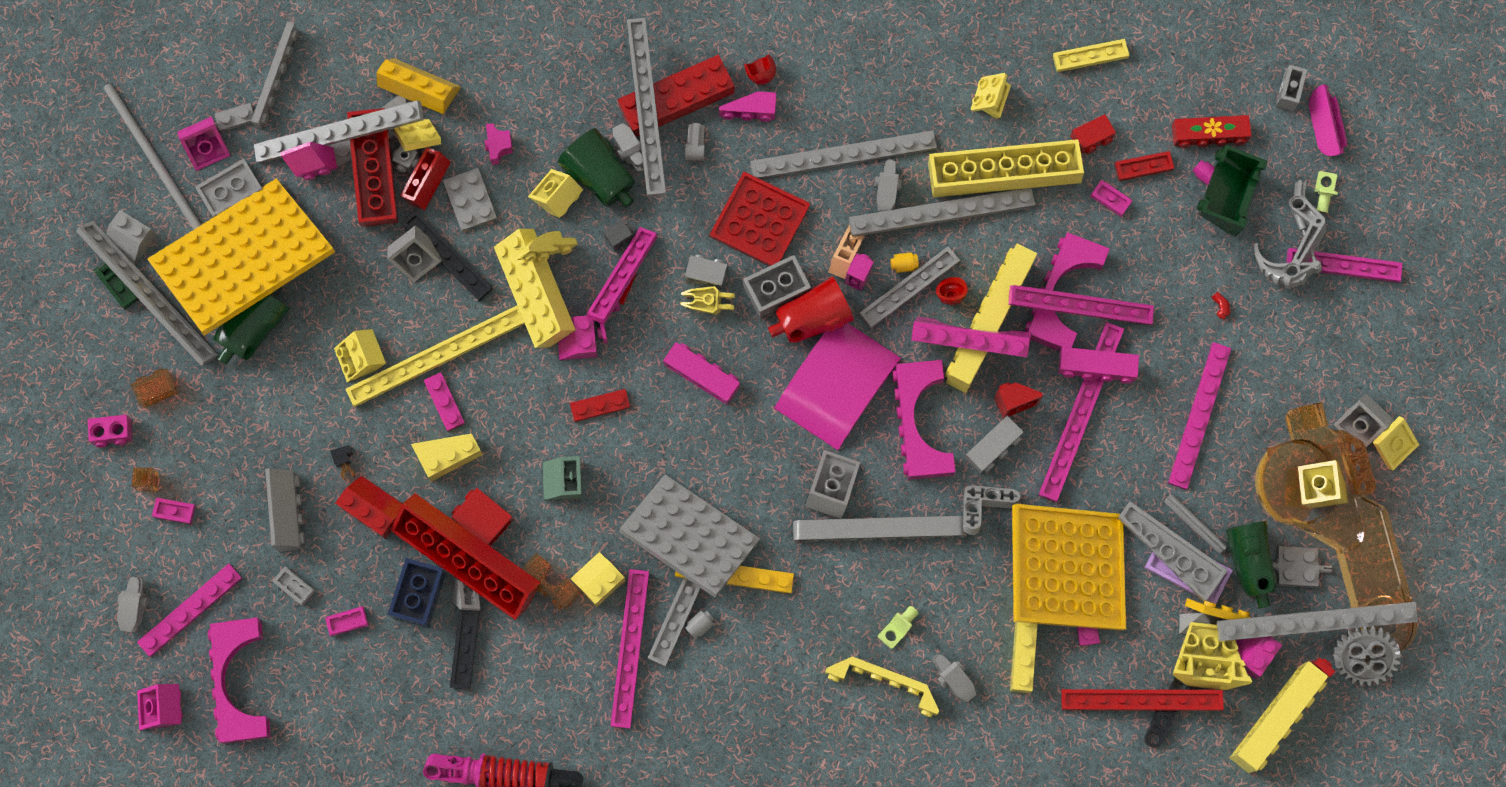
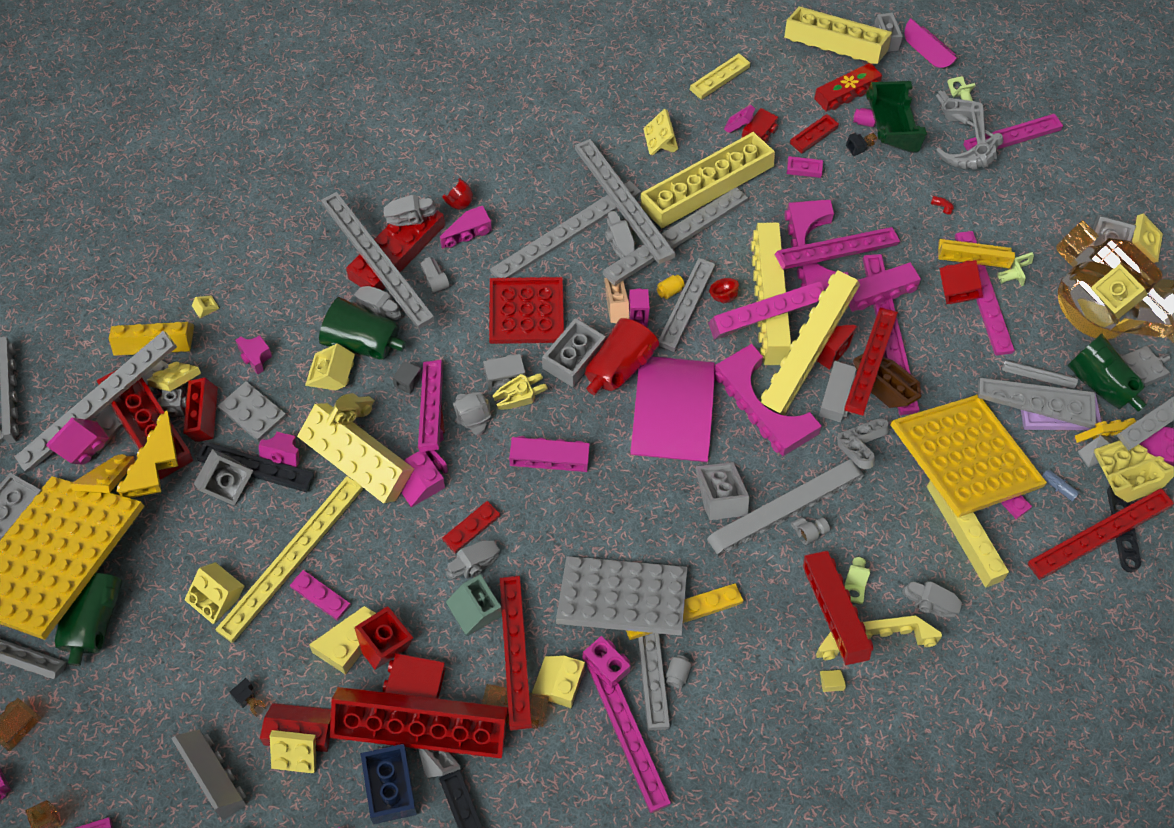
camera: 30 degrees left, 15 degrees down
(318, 204) = (104, 476): none -> yellow wing
(355, 527) = (293, 751): none -> light yellow plate
(367, 209) = (156, 455): none -> yellow slope
(472, 468) = (382, 637): none -> red slope
(474, 251) = (280, 449): none -> dark pink brick
(479, 71) = (204, 305): none -> light yellow slope
(573, 537) = (515, 654): none -> red plate
(584, 437) = (473, 560): none -> light grey hinge
(638, 587) = (602, 665): none -> dark pink brick
(657, 298) = (472, 411): none -> light grey piece
(700, 70) = (408, 210): none -> light grey hinge
(824, 699) = (832, 680): none -> light yellow slope
(862, 642) = (837, 608): none -> red brick
(886, 561) = (810, 530): none -> light grey piece
(910, 154) = (625, 202): none -> light grey plate
(987, 391) = (810, 342): none -> light yellow brick
(1034, 435) = (871, 362): none -> red plate
(1043, 459) = (893, 384): none -> reddish brown wedge
(1077, 116) = (739, 119): none -> dark pink plate
(1139, 636) = (1060, 485): none -> sand blue axle
(1177, 398) = (961, 282): none -> red slope
(1178, 199) = (857, 144): none -> black piece
(1212, 377) = (983, 254): none -> yellow fence
(1234, 69) = (838, 35): none -> light yellow brick
(1241, 412) = (1016, 271): none -> yellowish green bracket

